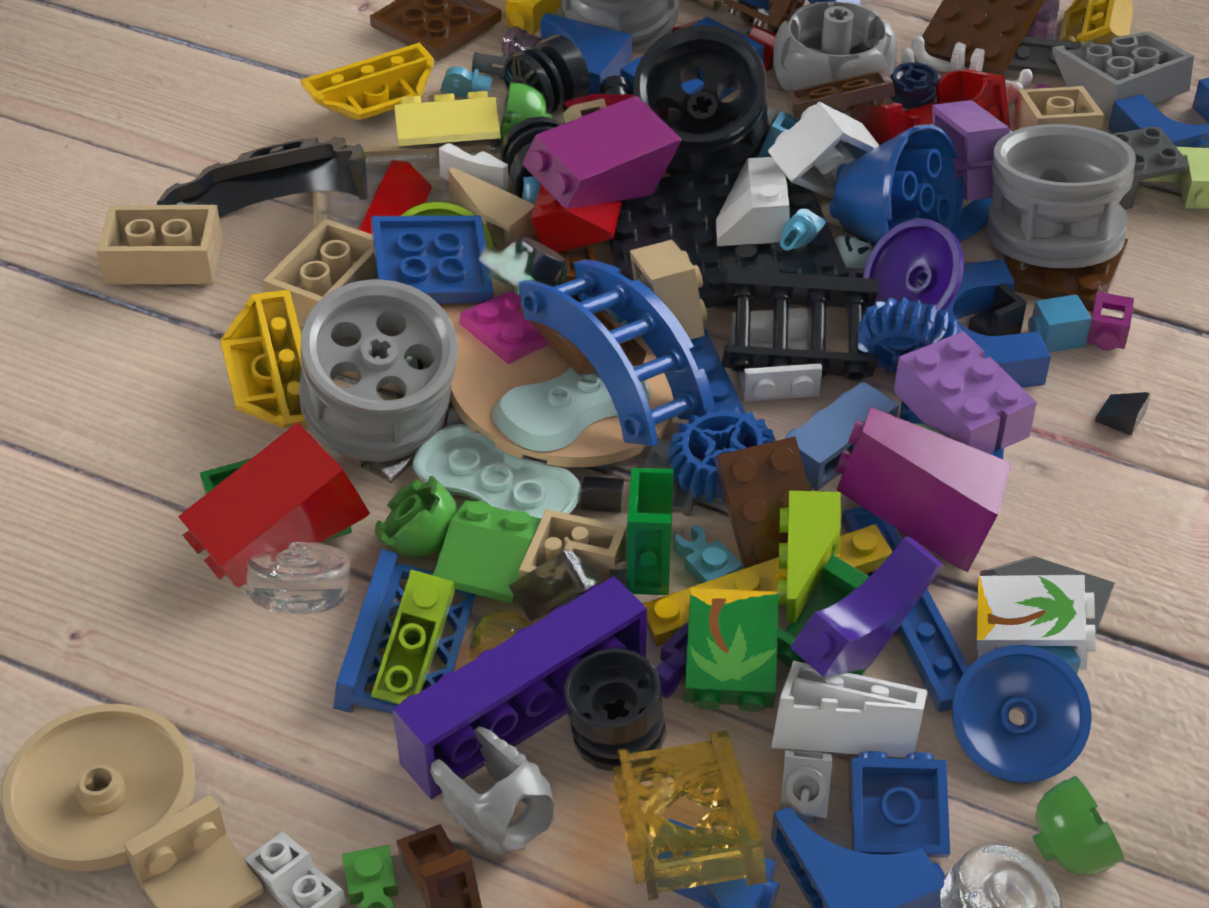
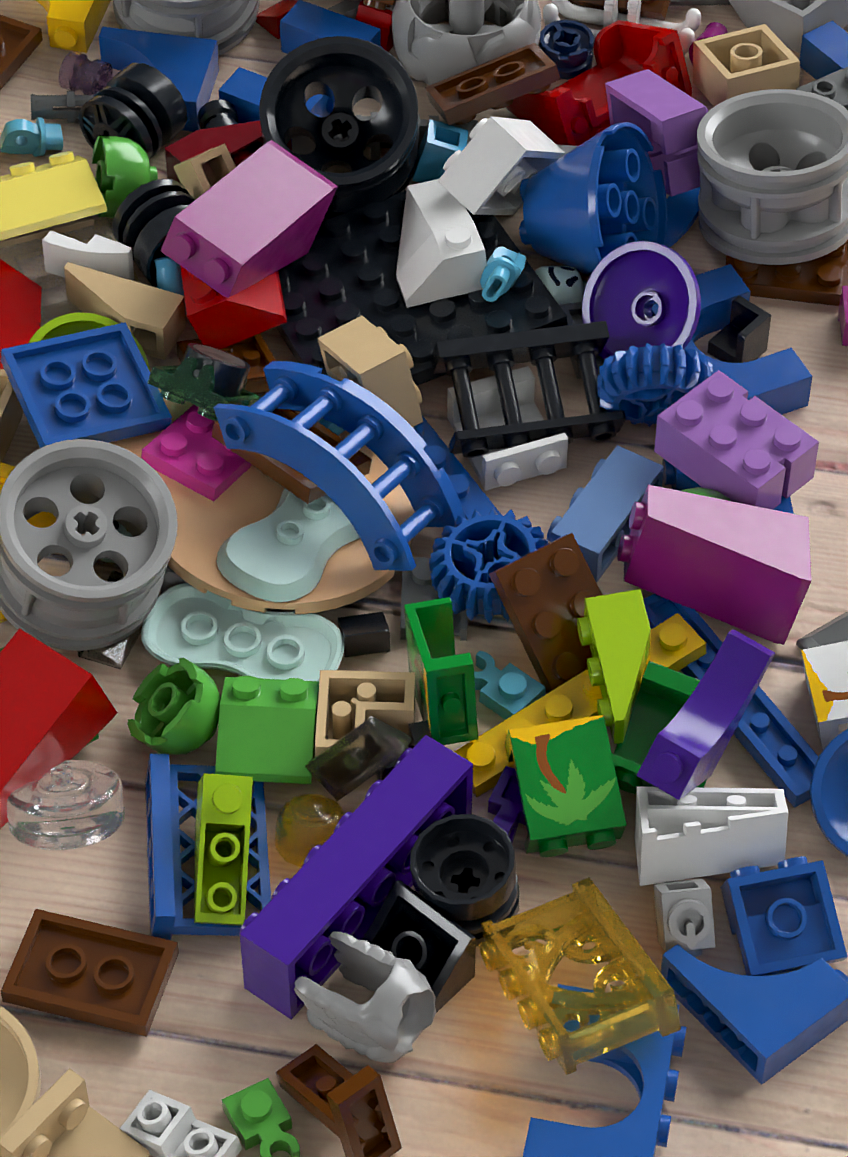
camera: 15 degrees left, 5 degrees up
(270, 720) = (90, 972): none -> reddish brown plate
(564, 758) = (427, 938): none -> black slope
(1061, 322) = (810, 328): dark azure brick -> none

